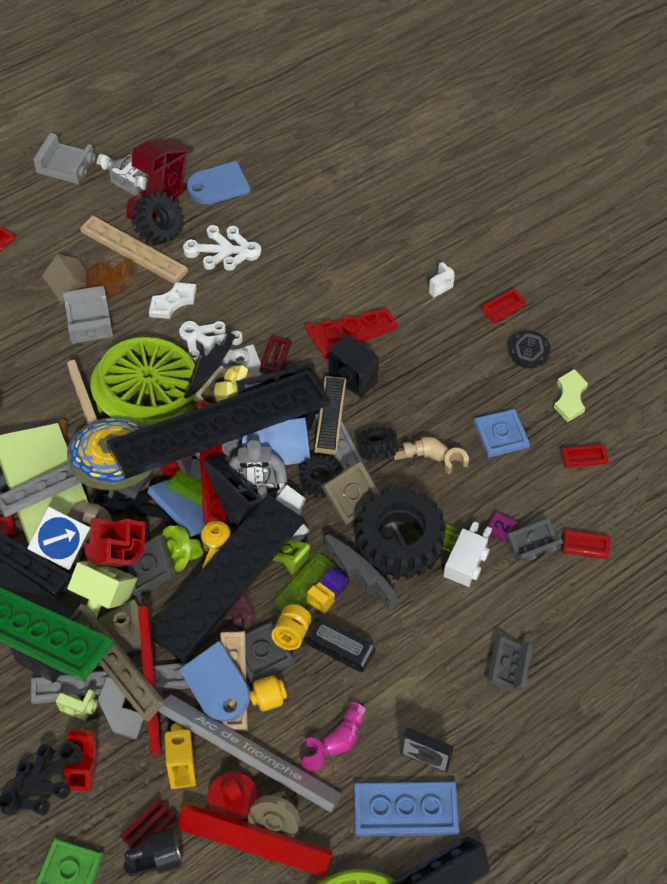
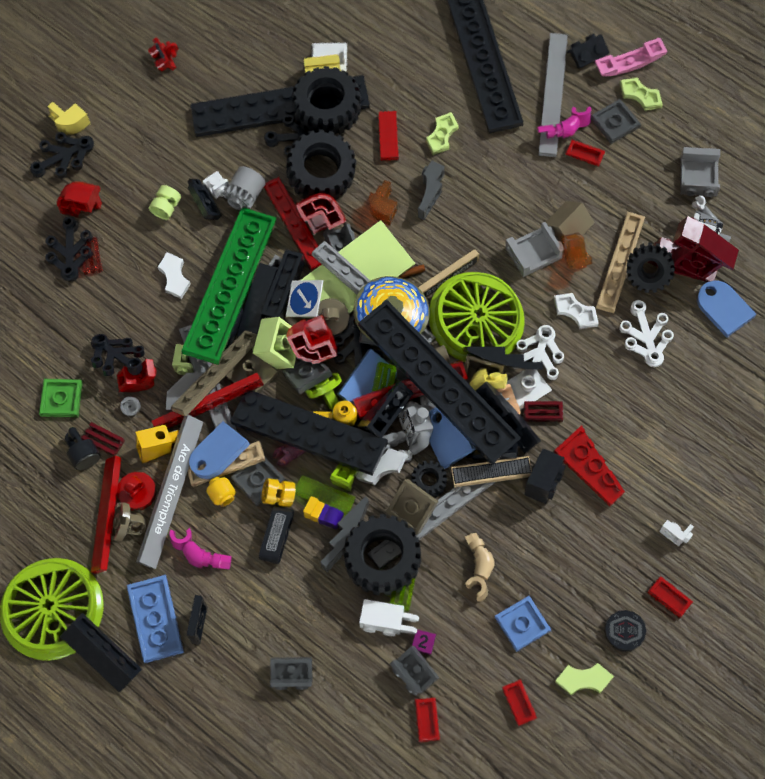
camera: 80 degrees right, 10 degrees up
(115, 781) = (130, 406): none -> light grey tile
(377, 443) = (465, 522): black tyre -> none

